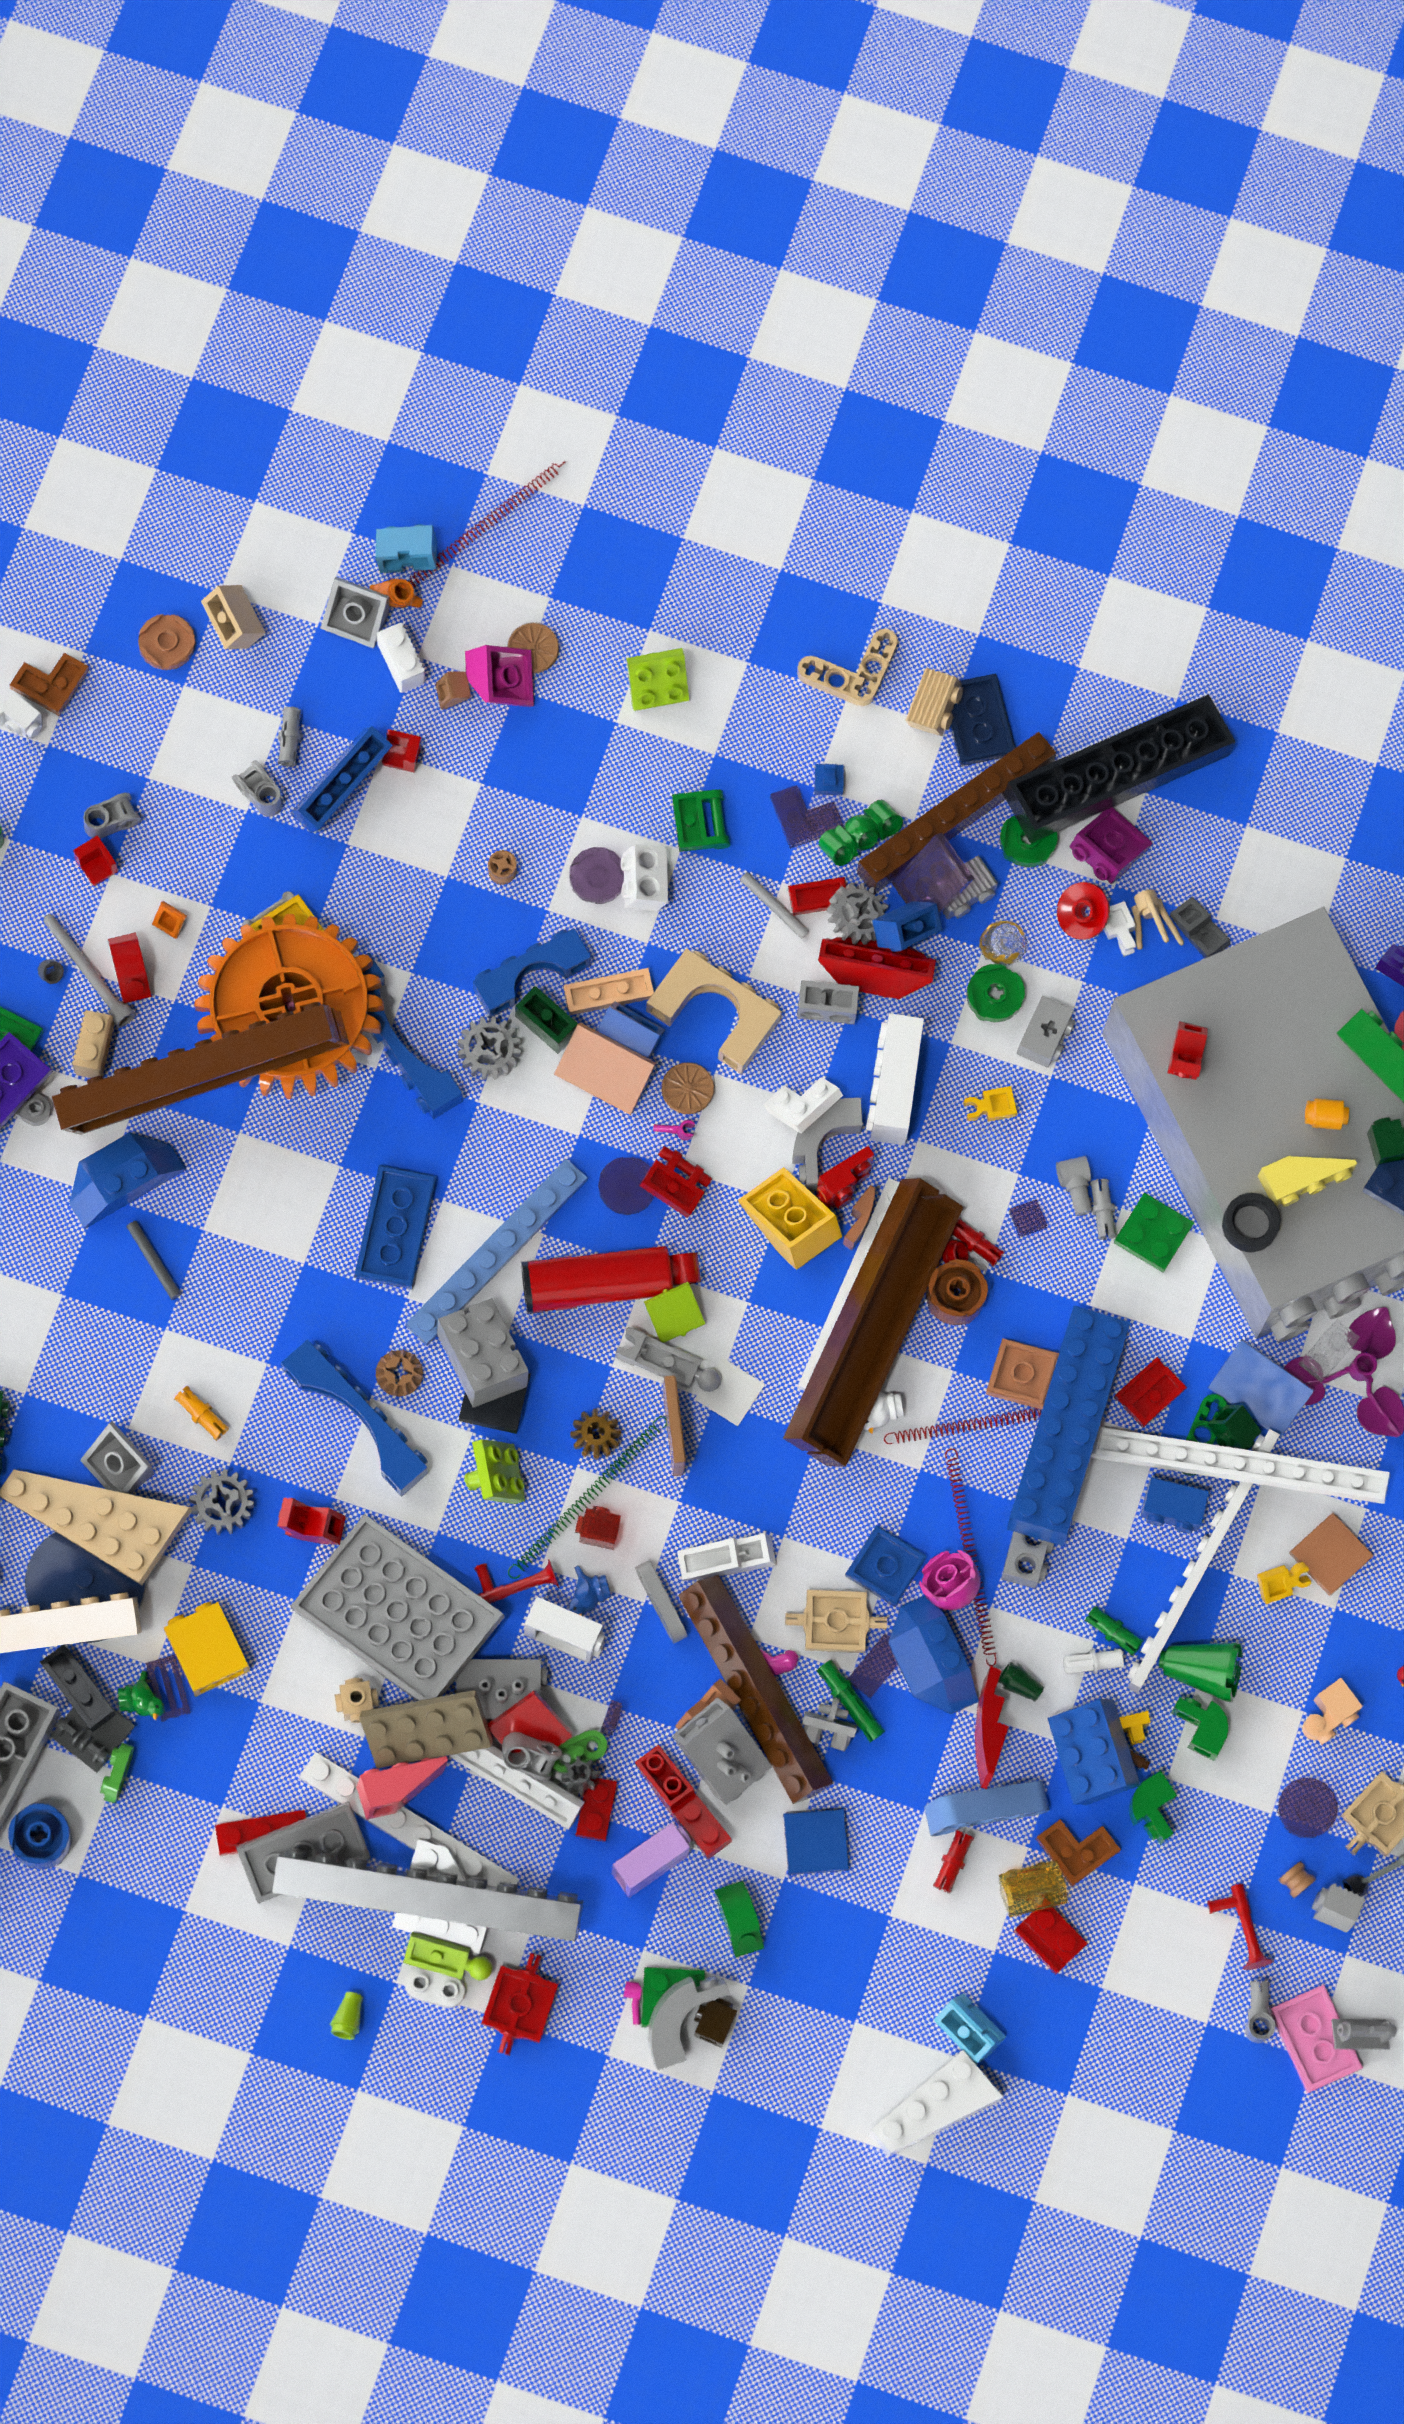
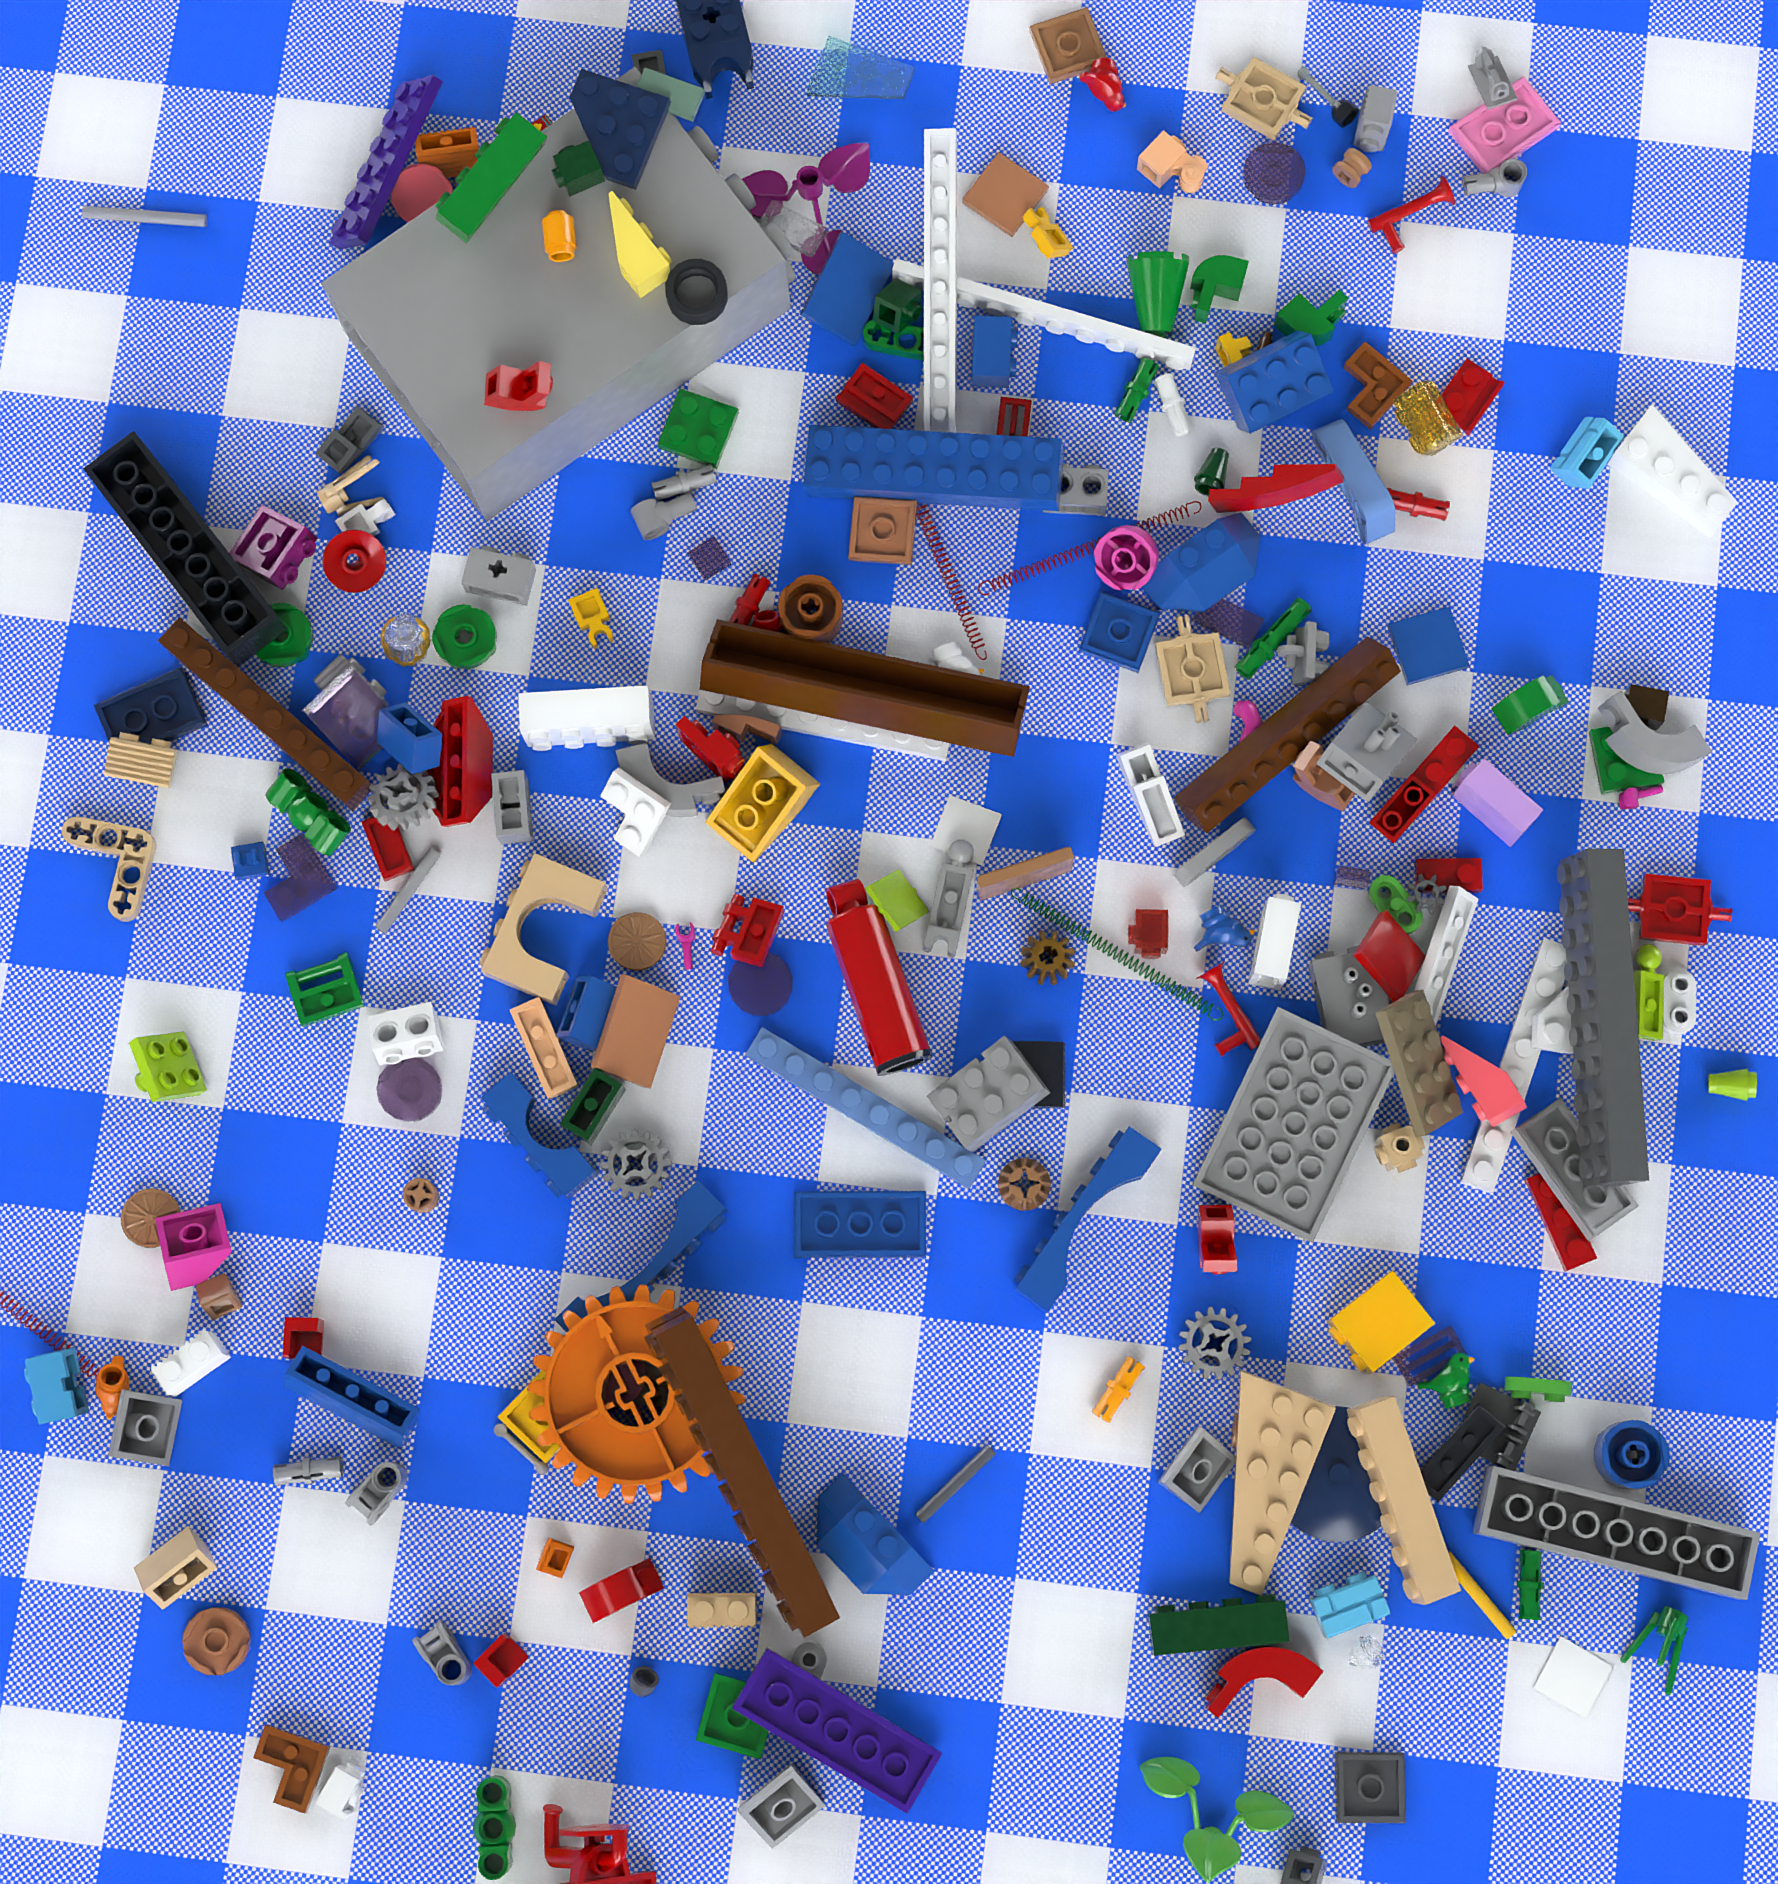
camera: 90 degrees left, 5 degrees up
(121, 1012) = (675, 1590): light grey piece -> none
(496, 1472) = (1117, 1051): lime plate -> none
(534, 1759) = (1419, 951): light grey piece -> none
(1119, 1530) = (1015, 402): none -> red tile

